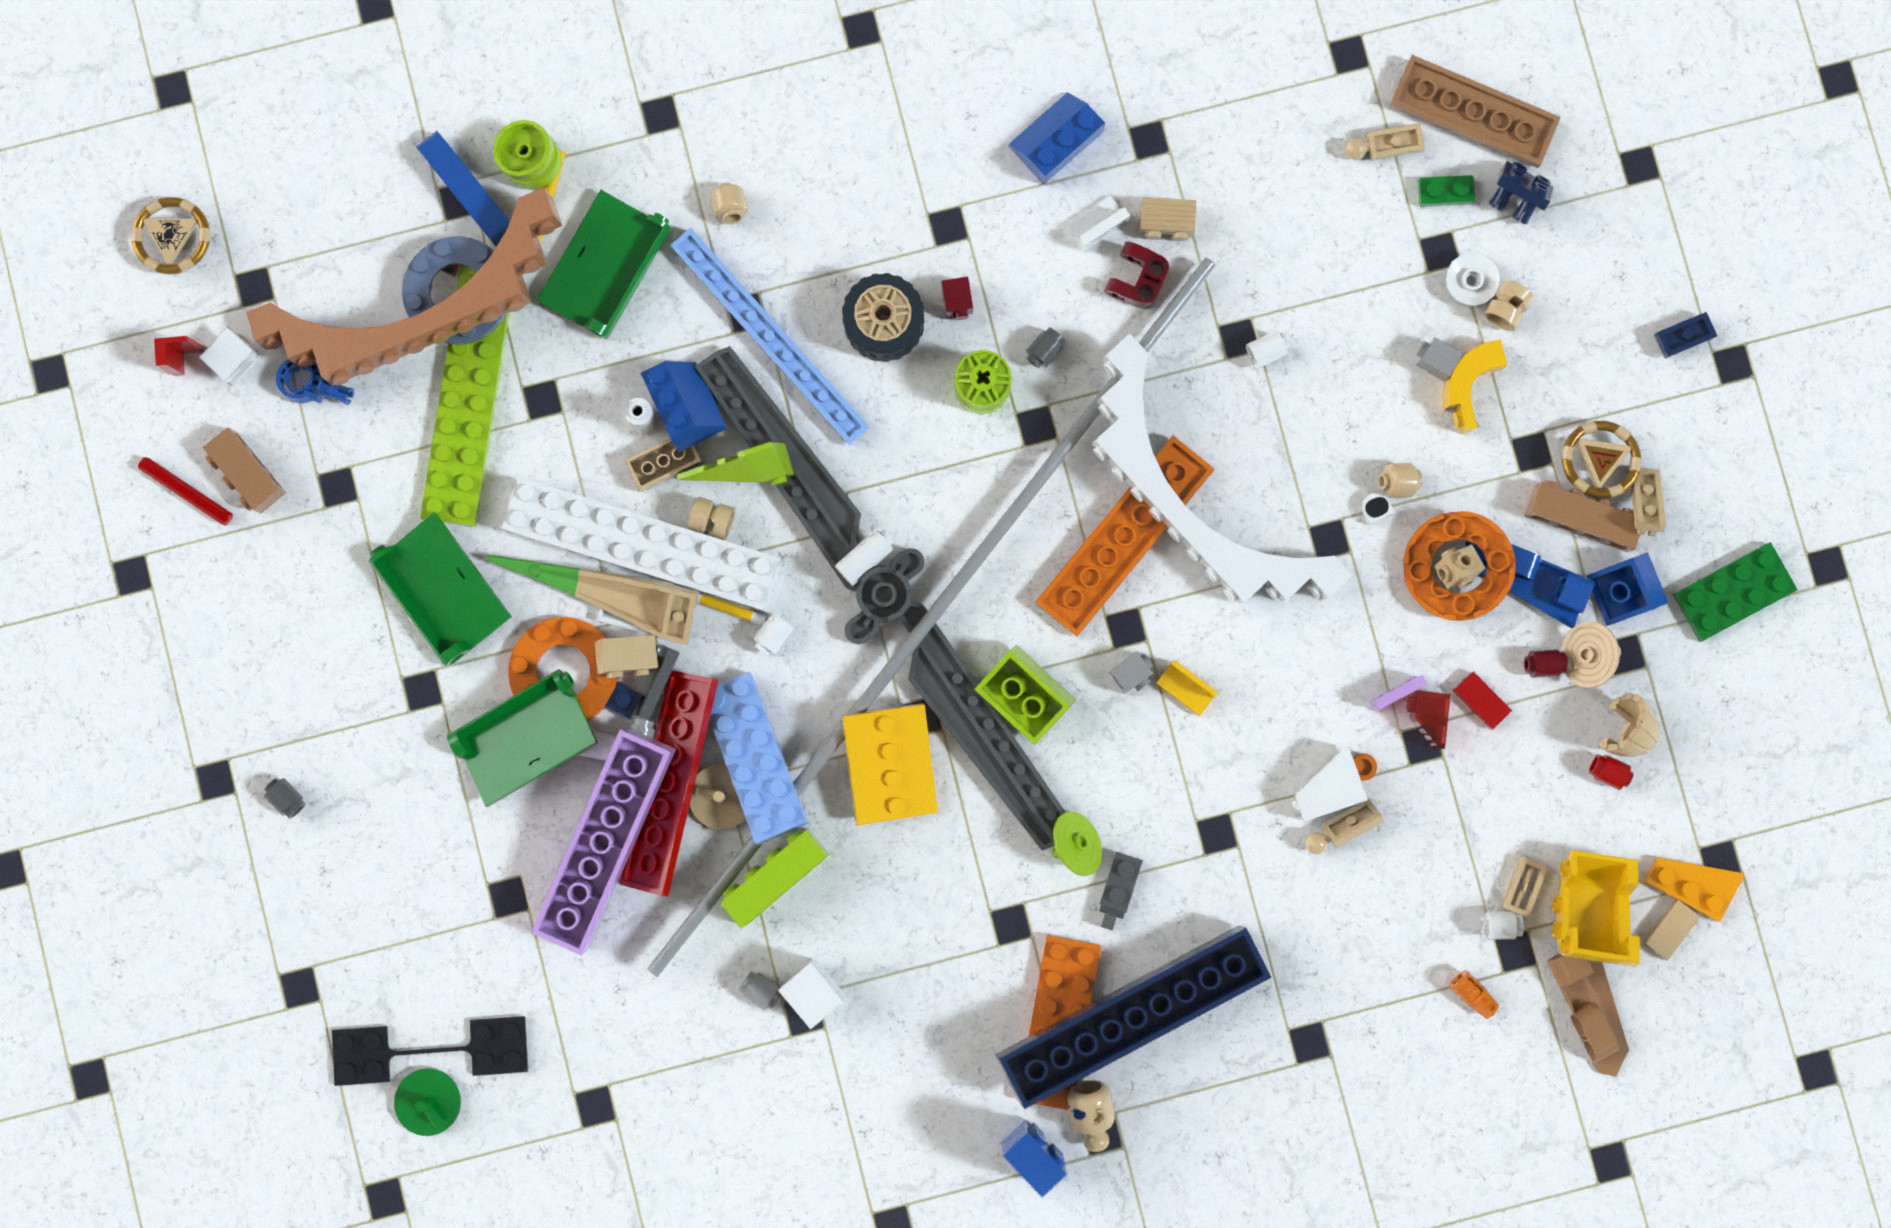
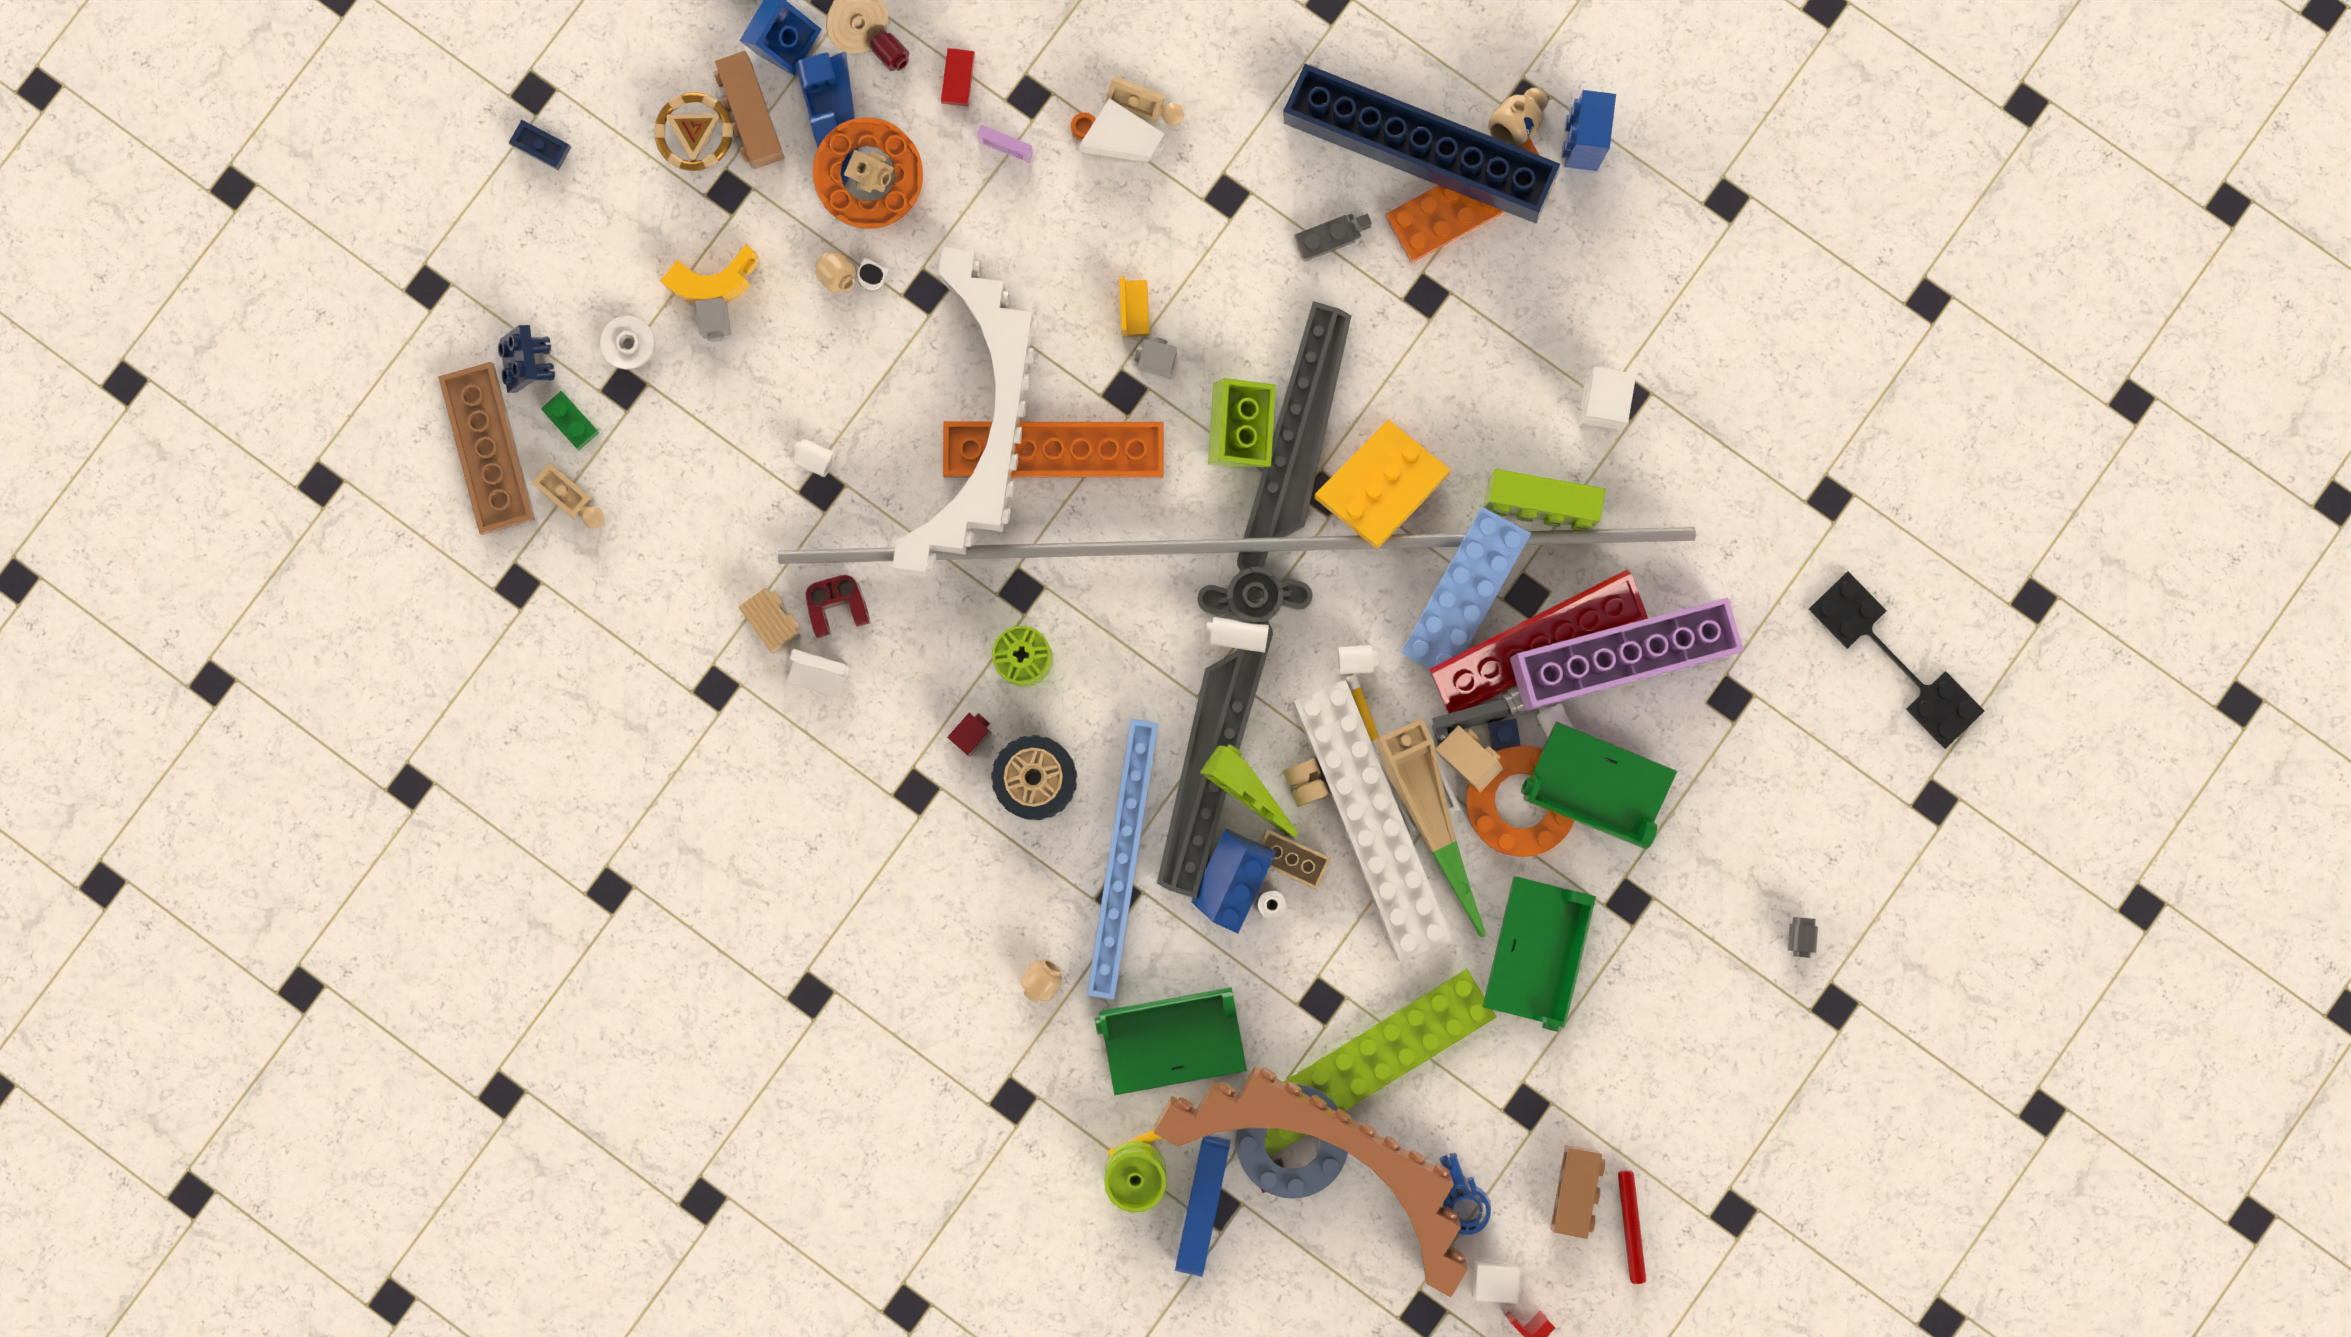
camera: 125 degrees left, 0 degrees up
(427, 1102) = (1935, 628): green shield -> none
(715, 799) = (1519, 598): tan shield -> none
(760, 991) = (1637, 442): light grey brick -> none
(1045, 348) = (954, 631): dark grey brick -> none
(1057, 136) = (773, 762): blue slope -> none
(1077, 844) = (1324, 291): lime shield -> none
(1430, 715) = (1002, 104): clear red slope -> none
(1510, 302) = (626, 297): tan wheel -> none
(1648, 502) = (700, 68): tan hinge -> none

